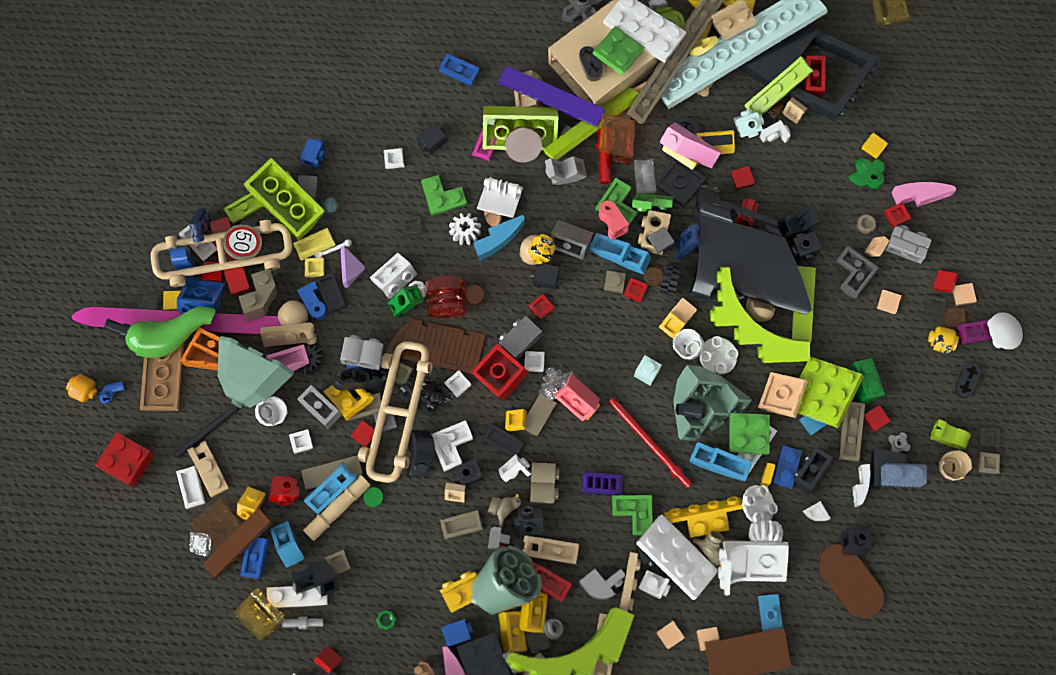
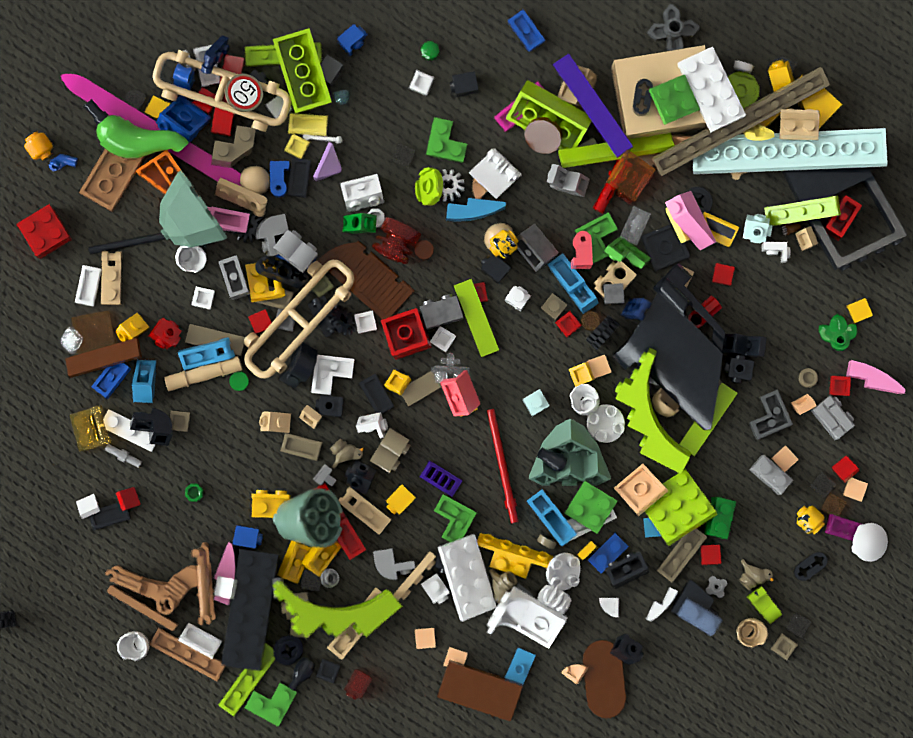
camera: 25 degrees right, 10 degrees up
(277, 242) = (275, 106): none -> white tile
(328, 349) = (268, 229): none -> light grey brick
(386, 128) = (430, 50): none -> green tile
(425, 515) = (275, 422): none -> tan bracket
(449, 237) = (429, 186): none -> lime tile
(553, 327) = (476, 317): none -> lime tile
(577, 522) = (399, 500): none -> yellow brick
(579, 290) = (517, 297): none -> white brick
(728, 486) = (546, 541): none -> dark tan tile
(822, 589) = (575, 672): none -> light nougat tile
(886, 320) = (771, 474): none -> light grey brick
(926, 415) = (754, 576): none -> dark tan animal

